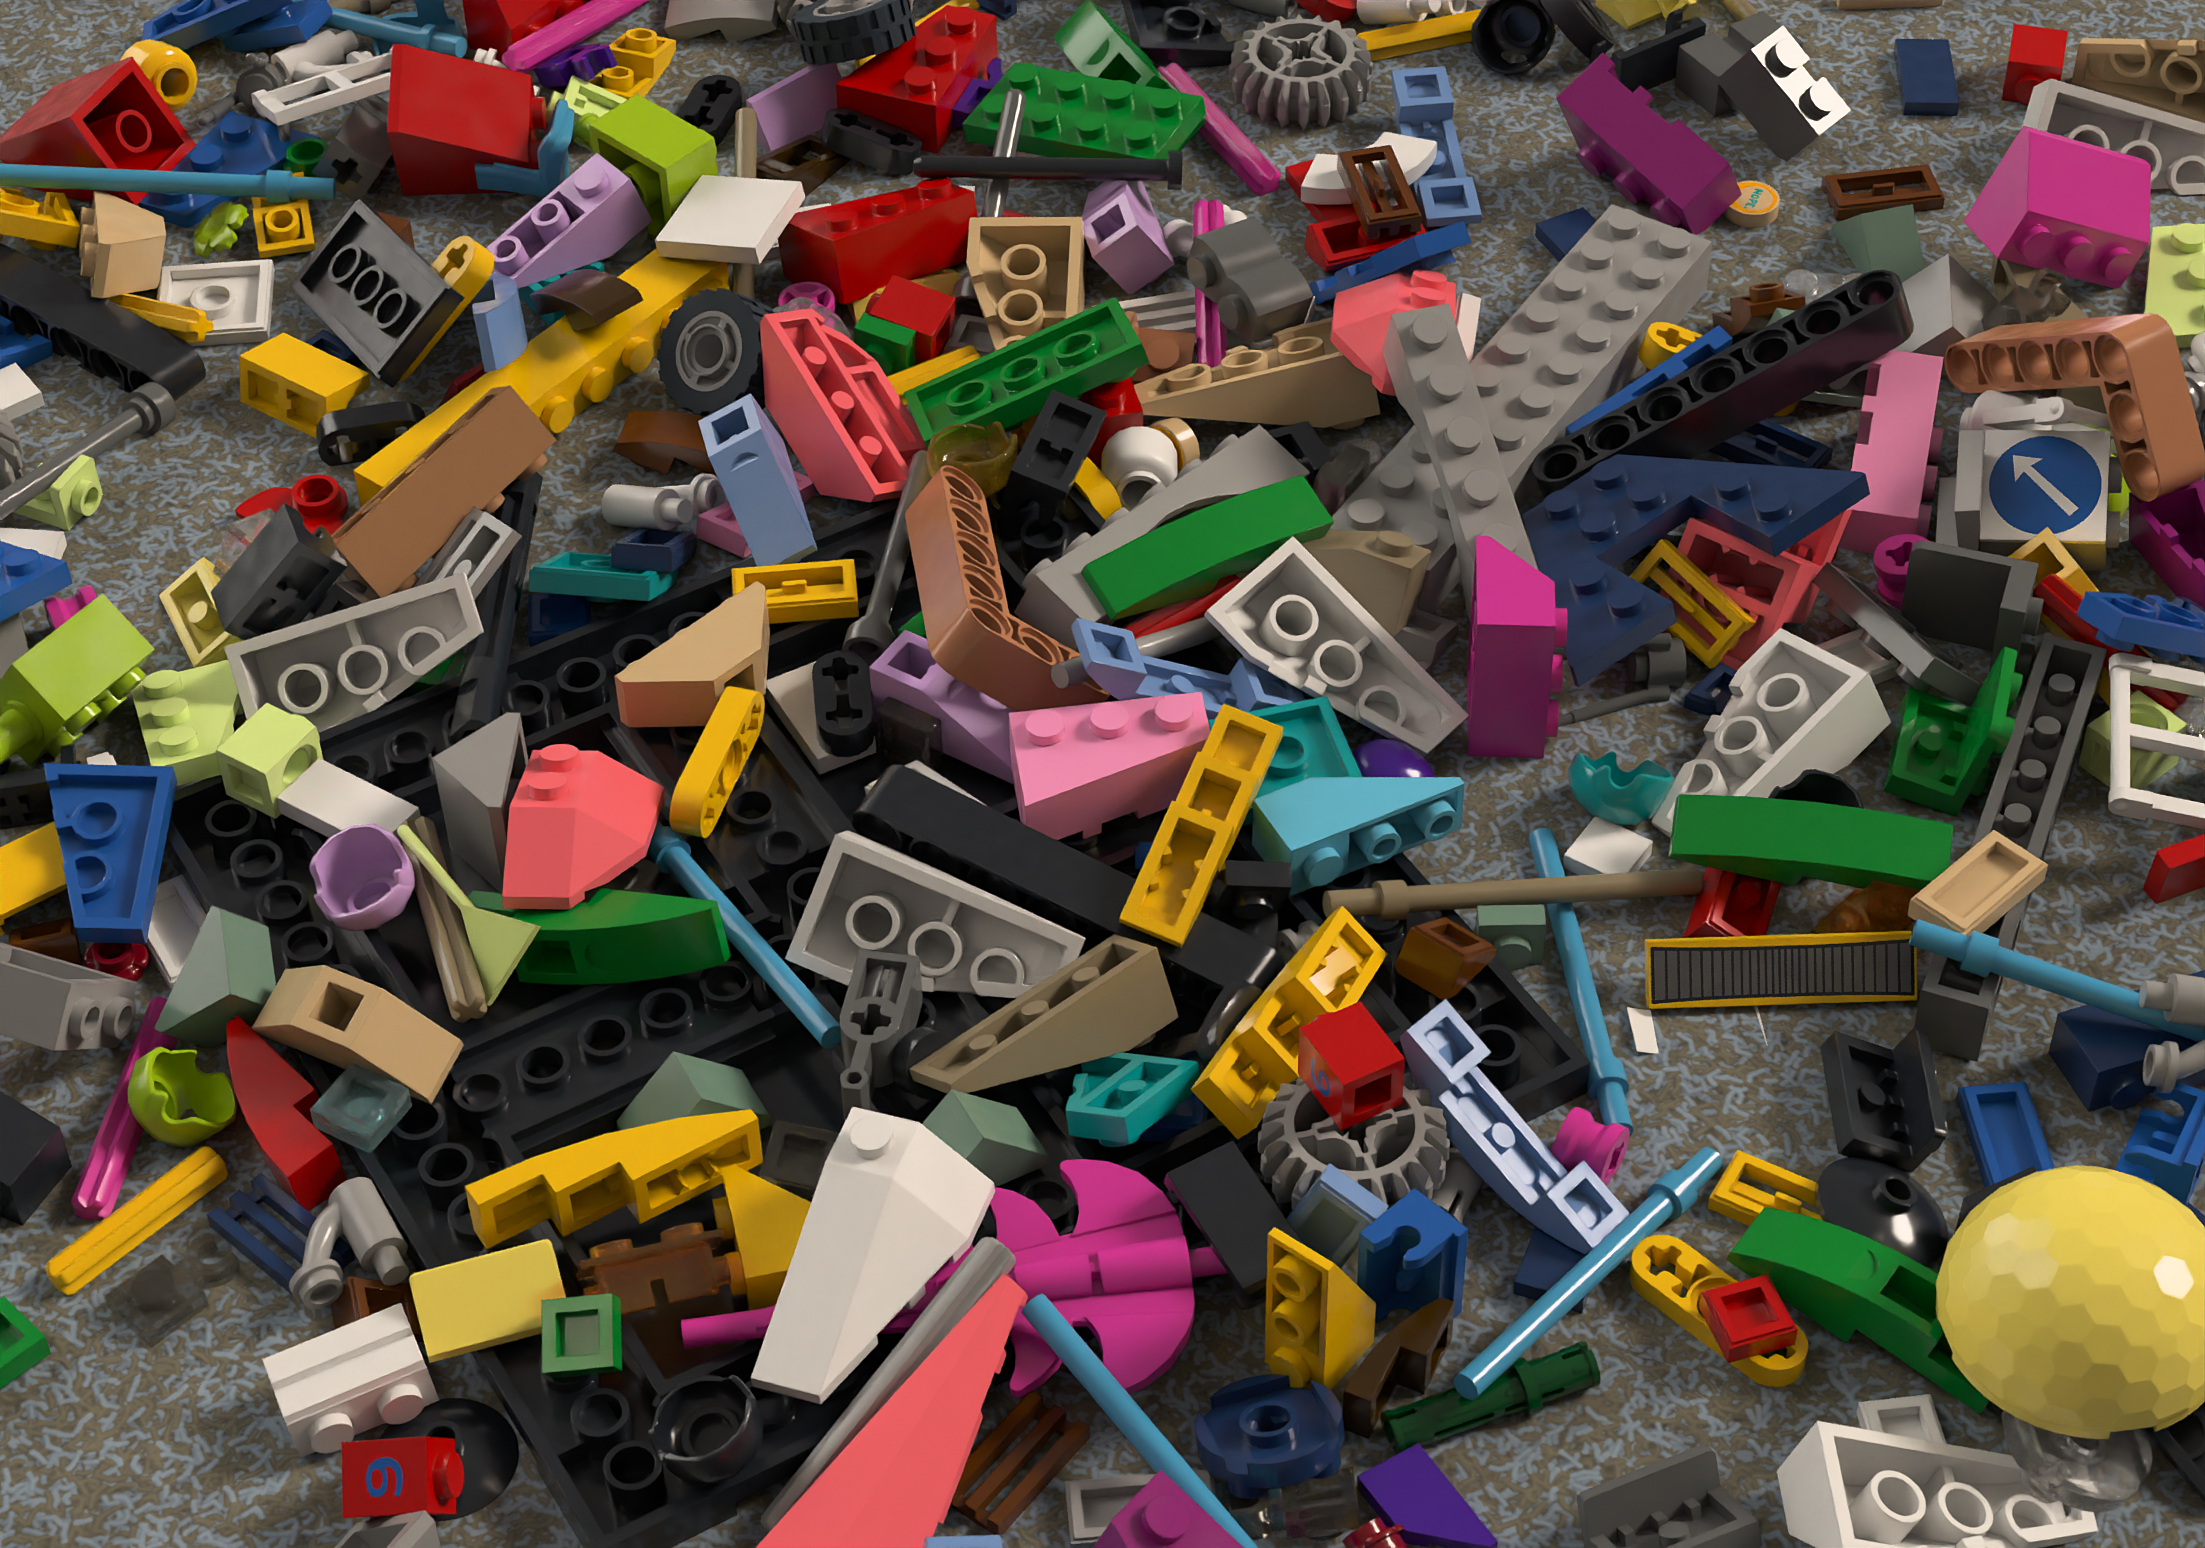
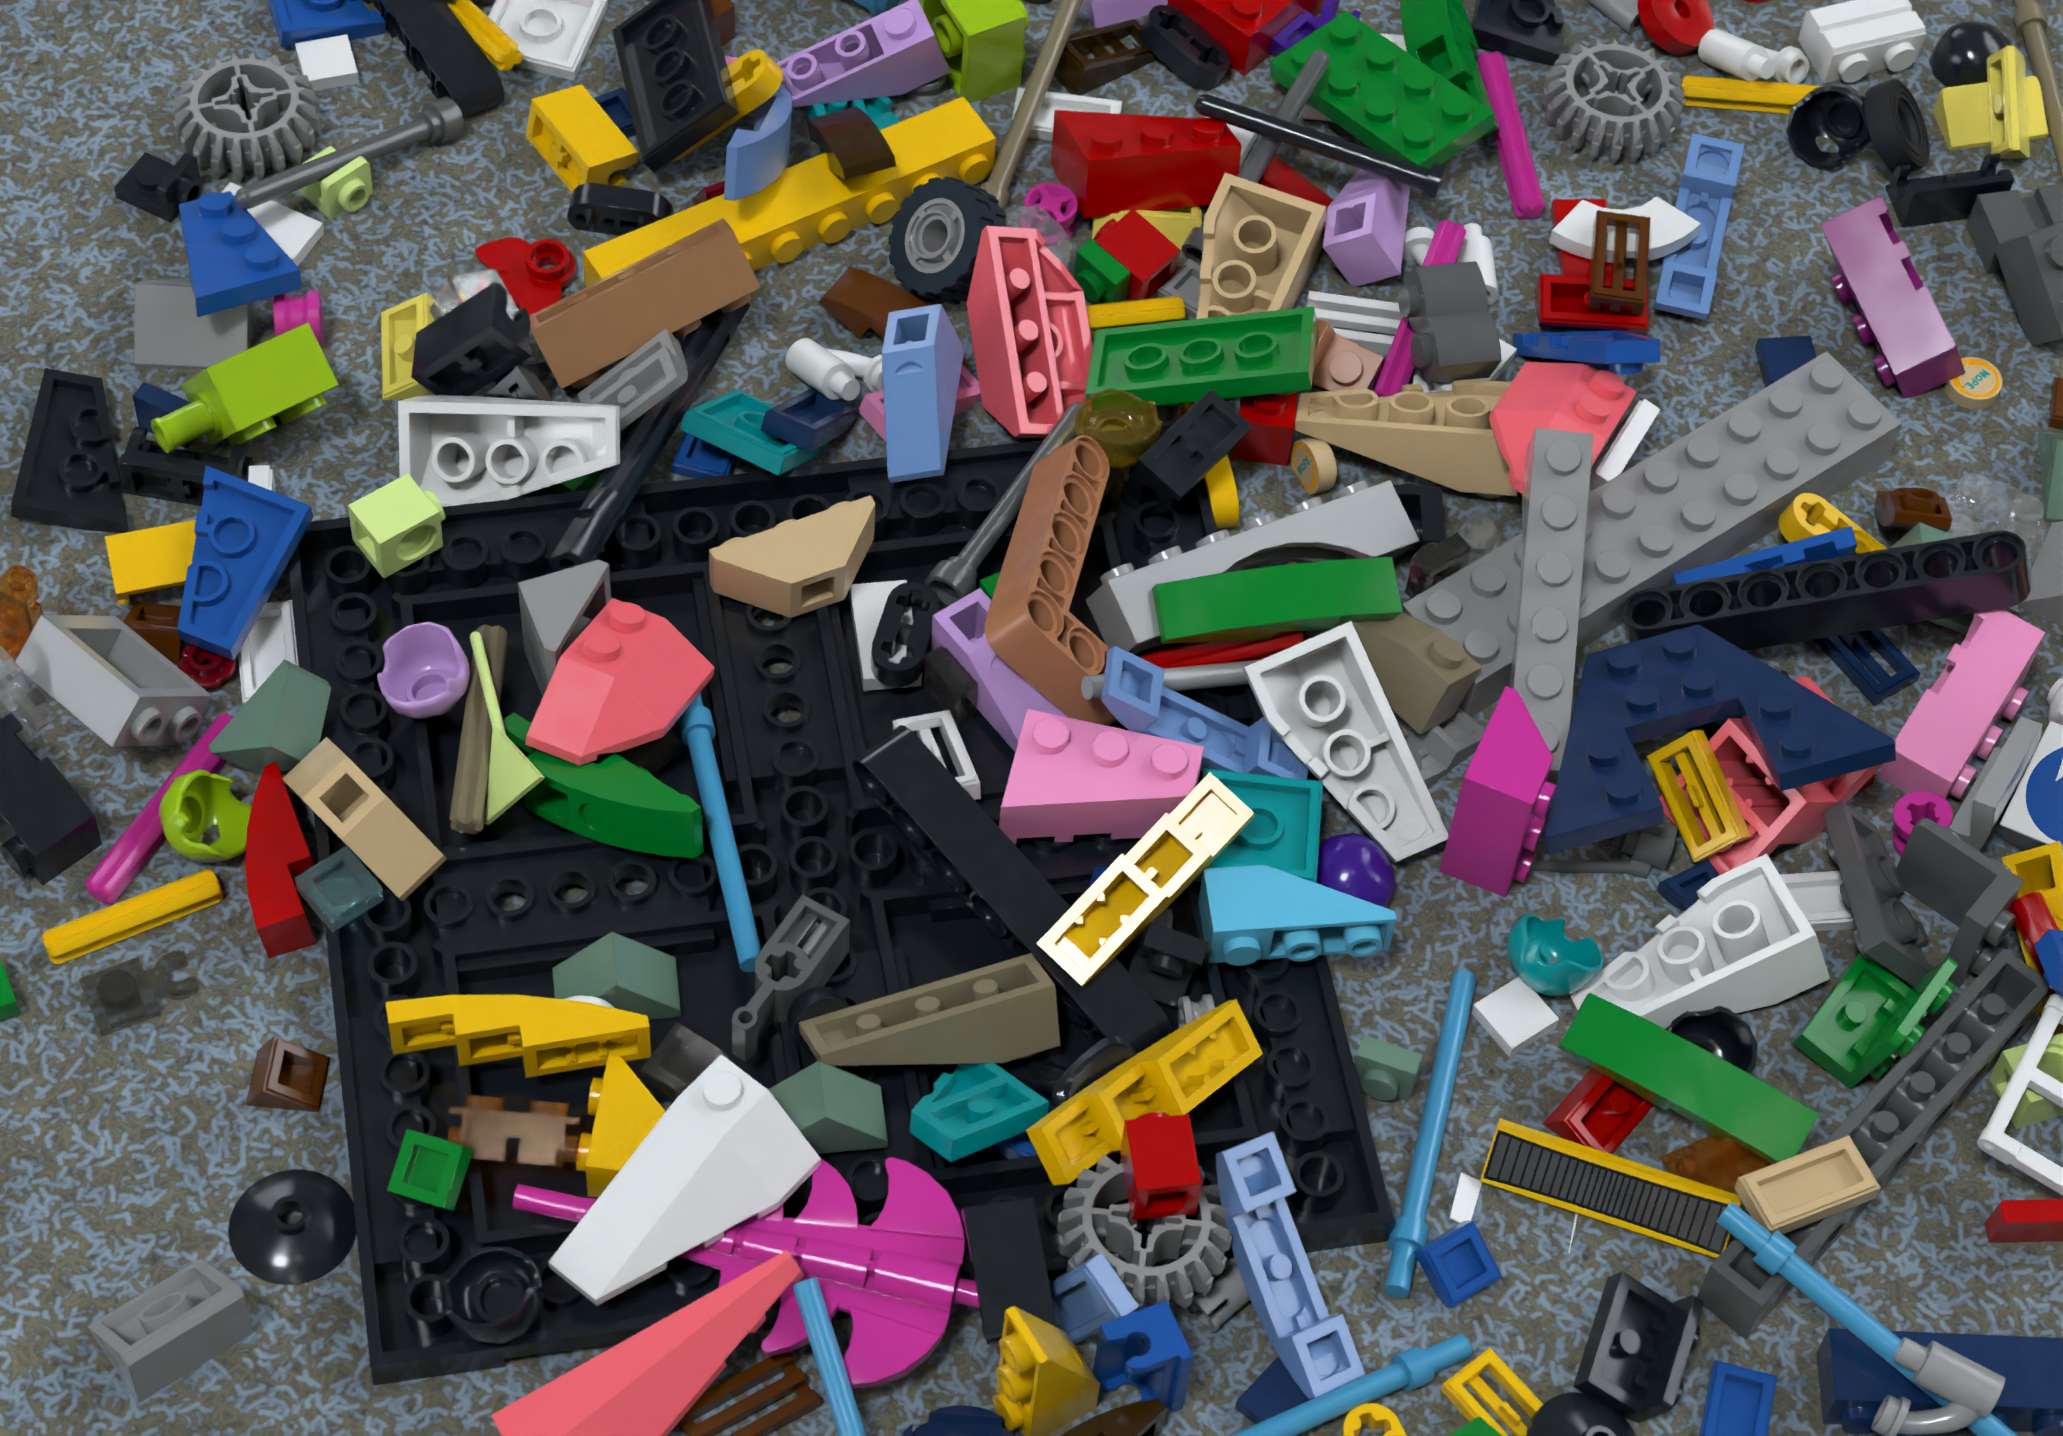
camera: 15 degrees right, 10 degrees up
(188, 718) = (348, 453): yellowish green wing -> none
(247, 1206) = (222, 934): dark blue tile -> none
(334, 800) = (443, 590): white tile -> none
(351, 1381) = (240, 1133): white brick -> none
(372, 1233) = (310, 1005): light grey plant -> none
(400, 1477) = (241, 1239): red brick -> none
(485, 1299) = (369, 1106): light yellow slope -> none
(717, 762) = (768, 659): yellow beam -> none
(730, 219) = (1011, 102): white tile -> none
(804, 589) = (907, 515): yellow tile -> none
(903, 906) = (867, 869): white wedge -> none
(959, 1294) = (741, 1256): light grey axle -> none
(1138, 461) = (1272, 479): white head -> none
(1395, 899) = (1290, 1004): dark tan bar -> none
(1442, 957) = (1311, 1073): reddish brown slope -> none
(1590, 1141) = (1359, 1299): dark pink wheel -> none
(1668, 1085) = (1458, 1263): none -> blue tile

